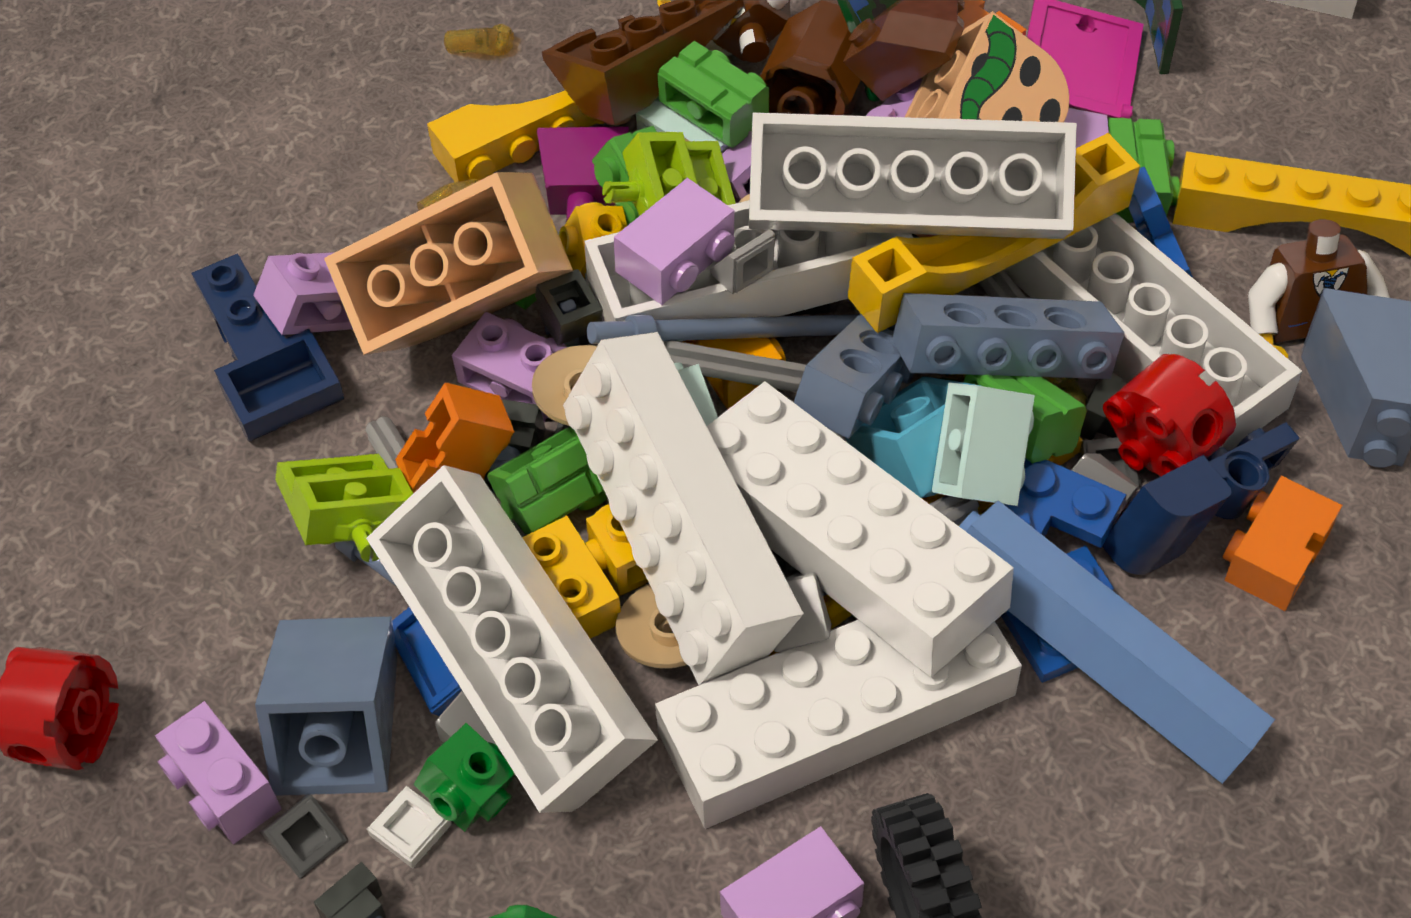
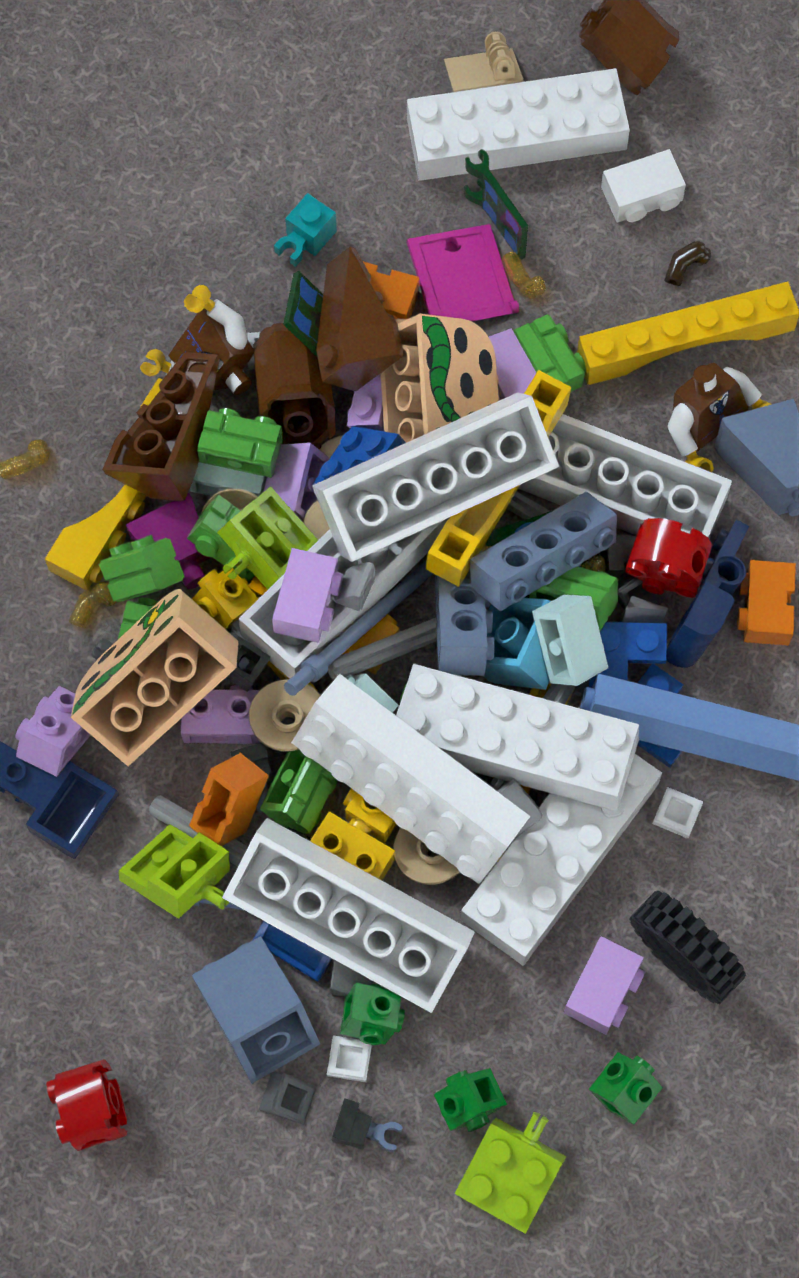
camera: 30 degrees left, 15 degrees up
(218, 772) = (216, 1090): lavender brick -> none
(530, 152) = (141, 568): none -> bright green brick
(1021, 739) = (677, 812): none -> white tile
(1149, 85) = (518, 275): none -> clear yellow arm
(1152, 220) = (585, 404): blue plate -> none
(1352, 50) = (643, 186): none -> white brick
(1383, 139) = (684, 257): none -> dark brown arm

